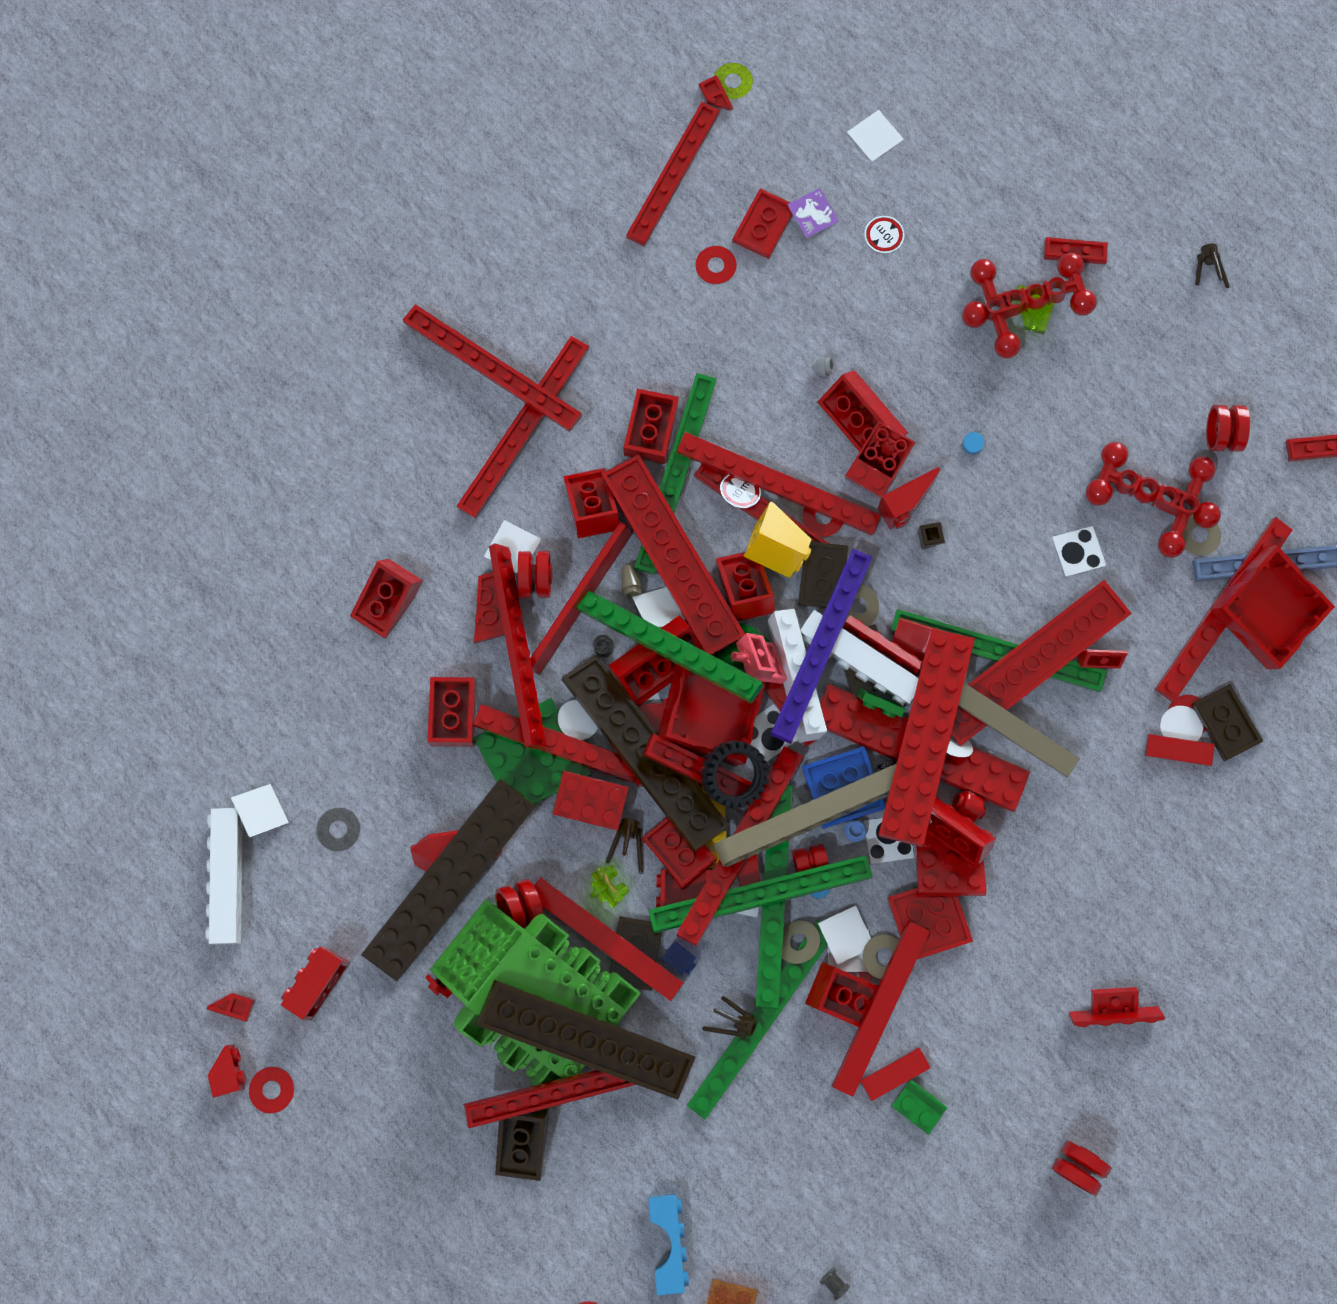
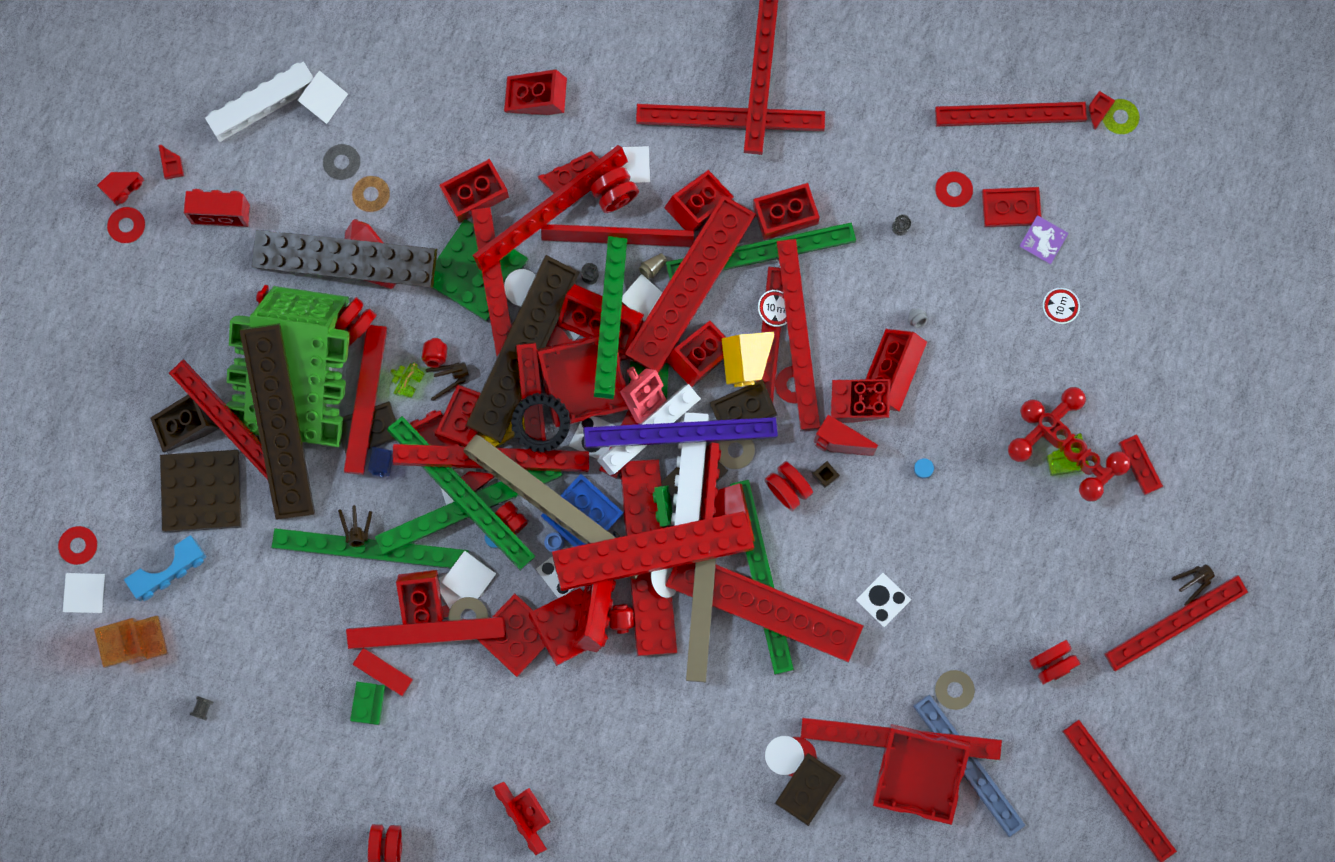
camera: 60 degrees right, 0 degrees up
(376, 812) = (371, 206): none -> clear orange piece
(590, 800) = (463, 328): red brick -> none
(596, 843) = (434, 353): none -> red head
(603, 1162) = (200, 491): none -> dark brown plate
(728, 325) = (896, 226): none -> clear smoke bush
(811, 947) = (453, 551): dark tan piece -> none
(875, 135) = (1143, 253): white sticker -> none
(927, 574) = (788, 486): none -> red wheel
(1101, 658) = (799, 660): red slope -> none
(1179, 750) = (762, 762): red tile -> none
(1200, 469) = (930, 667): red piece -> none
(1241, 304) = (1176, 623): none -> red tile

